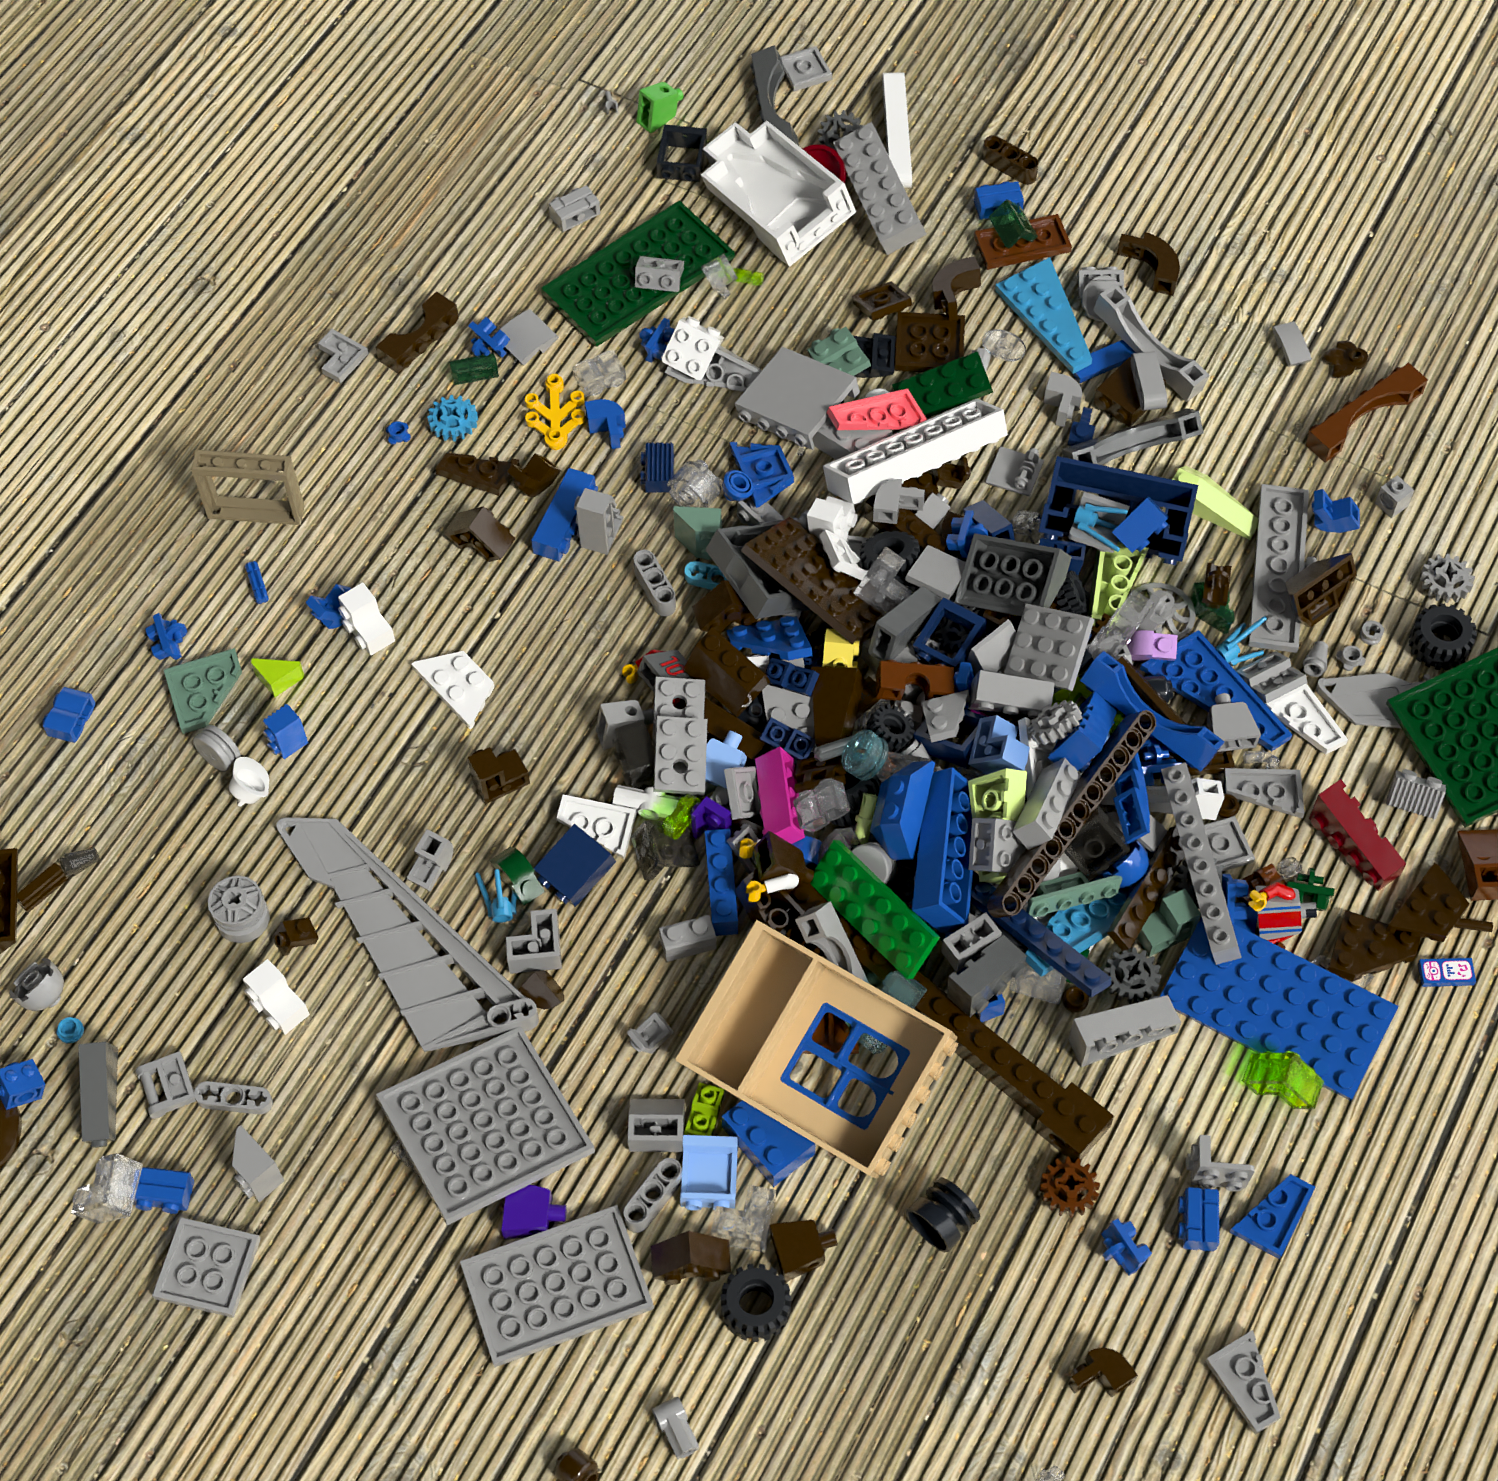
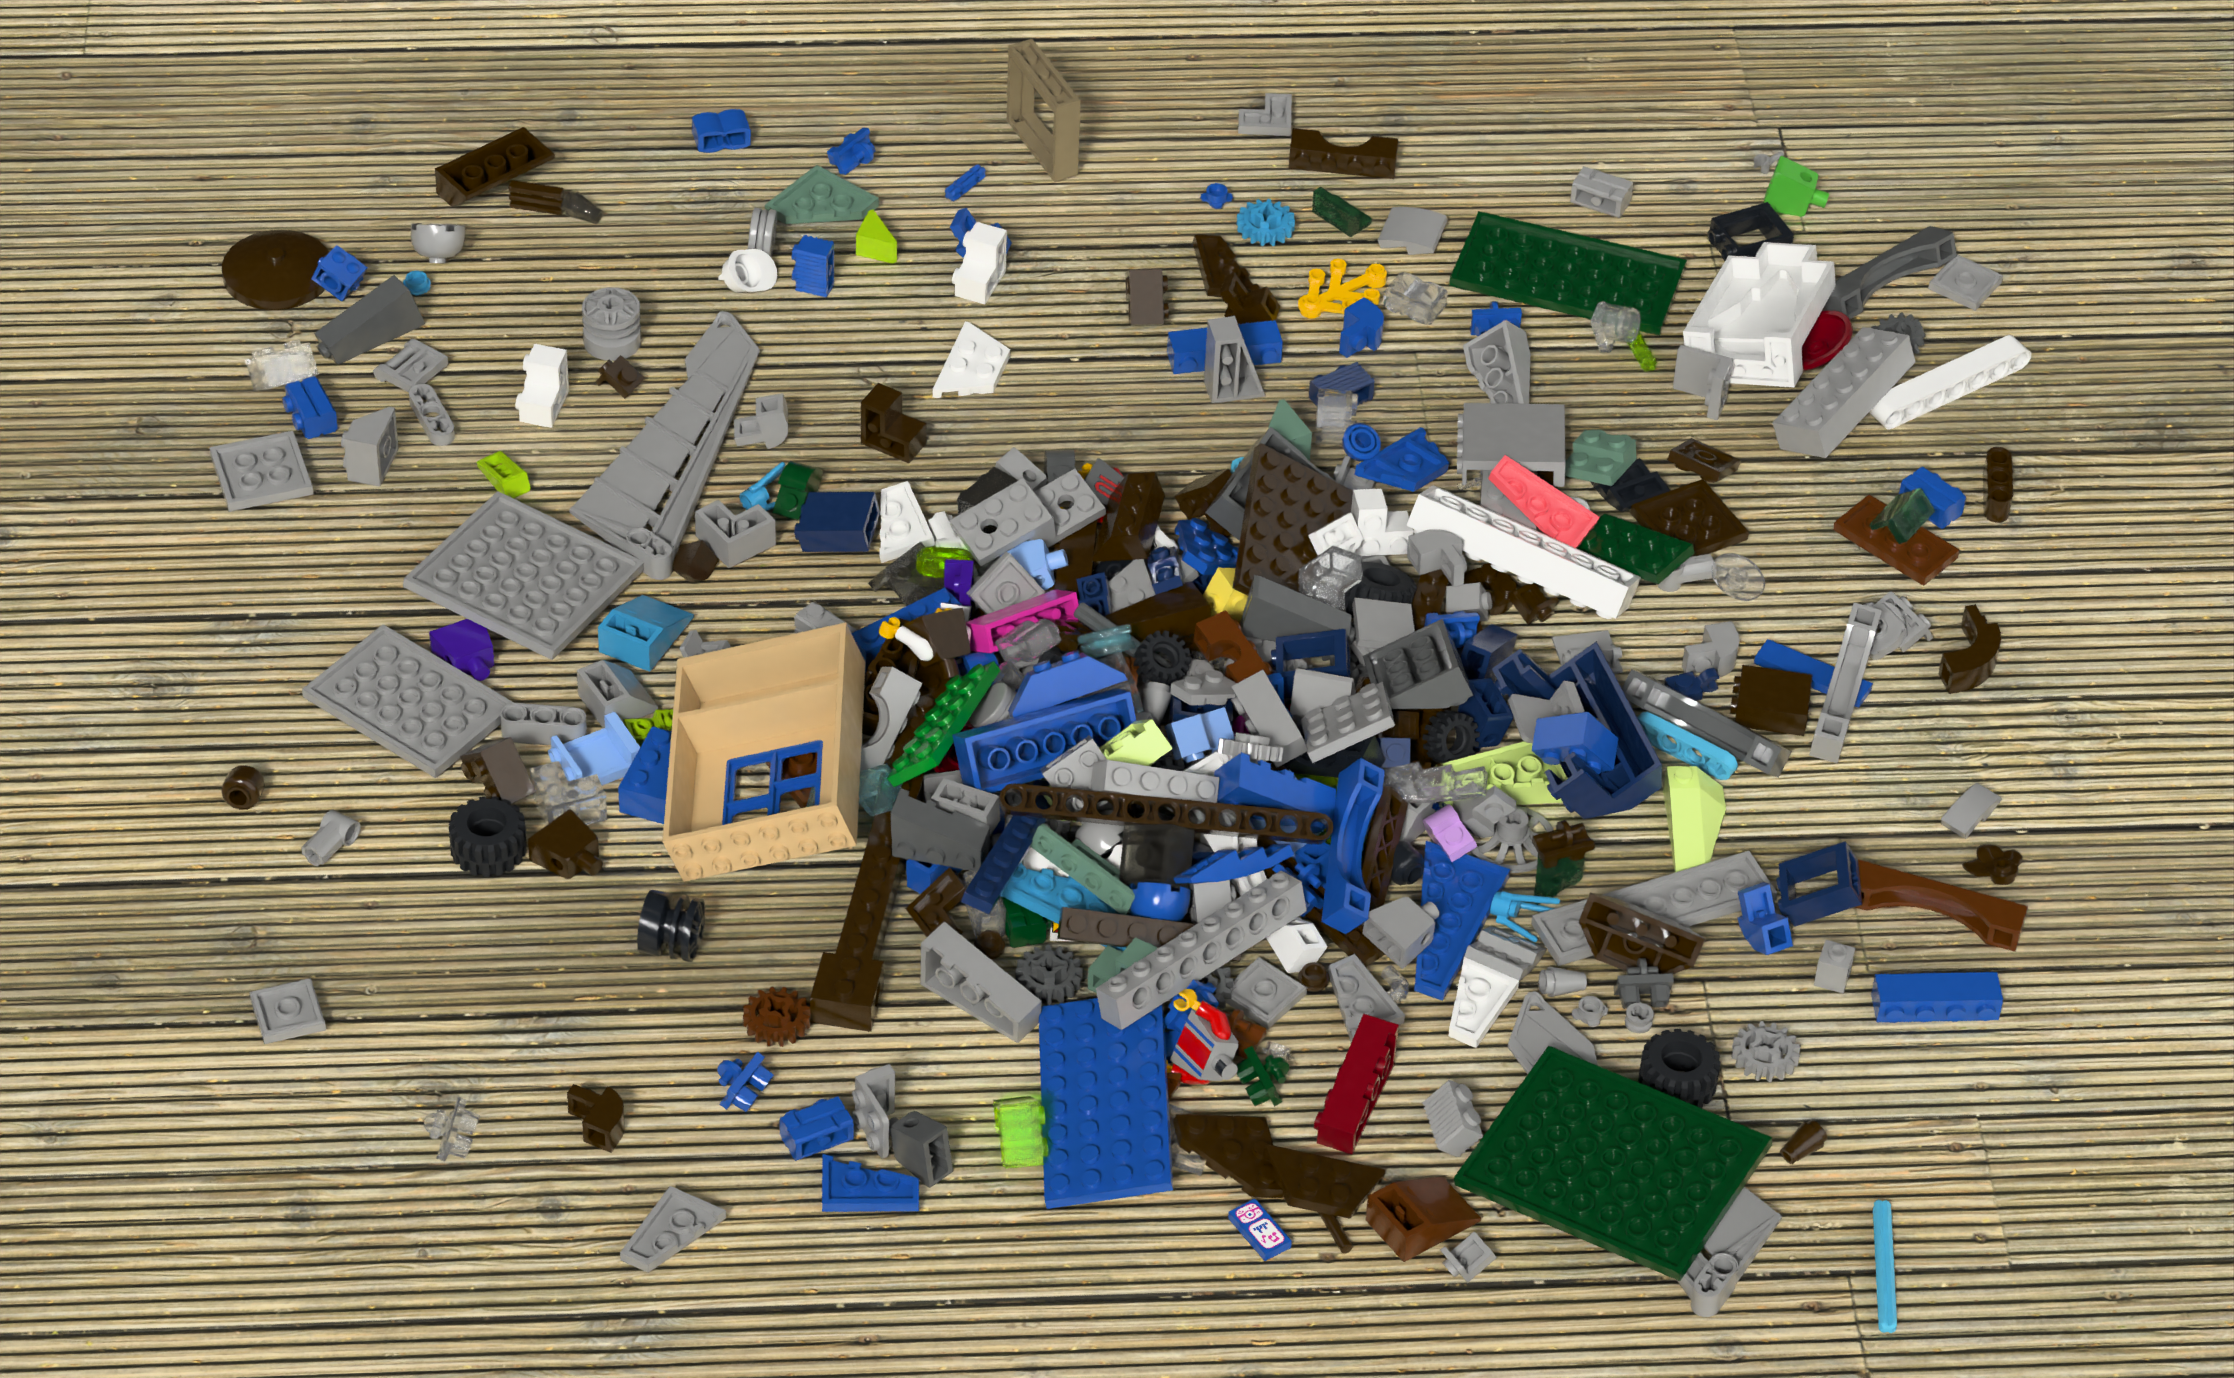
camera: 55 degrees right, 15 degrees down
(358, 1080) = (507, 477): none -> lime slope
(483, 331) = (1381, 202): blue hips -> none
(596, 1065) = (641, 631): none -> dark azure slope
(625, 686) = (1058, 463): none -> dark grey brick
(655, 592) = (1202, 444): light grey beam -> none
(658, 273) = (1572, 279): light grey bracket -> none
(692, 347) = (1501, 337): white bracket -> none
(812, 249) = (1705, 376): none -> light grey bracket
(953, 279) = (1777, 501): dark brown arch -> none
(1026, 1021) = (935, 902): none -> dark brown plate
(1043, 306) = (1818, 593): dark azure wing -> none
(1086, 518) = (1545, 700): dark azure plant -> none
(1148, 380) = (1785, 694): light grey beam -> none
(1151, 460) = (1714, 759): none -> medium azure beam
(1266, 1153) = (921, 1147): none -> dark grey torso
(1334, 440) = (1825, 901): none -> dark blue window
(1346, 610) = (1643, 981): none -> dark grey hips
(1450, 457) = (1937, 997): none -> blue brick

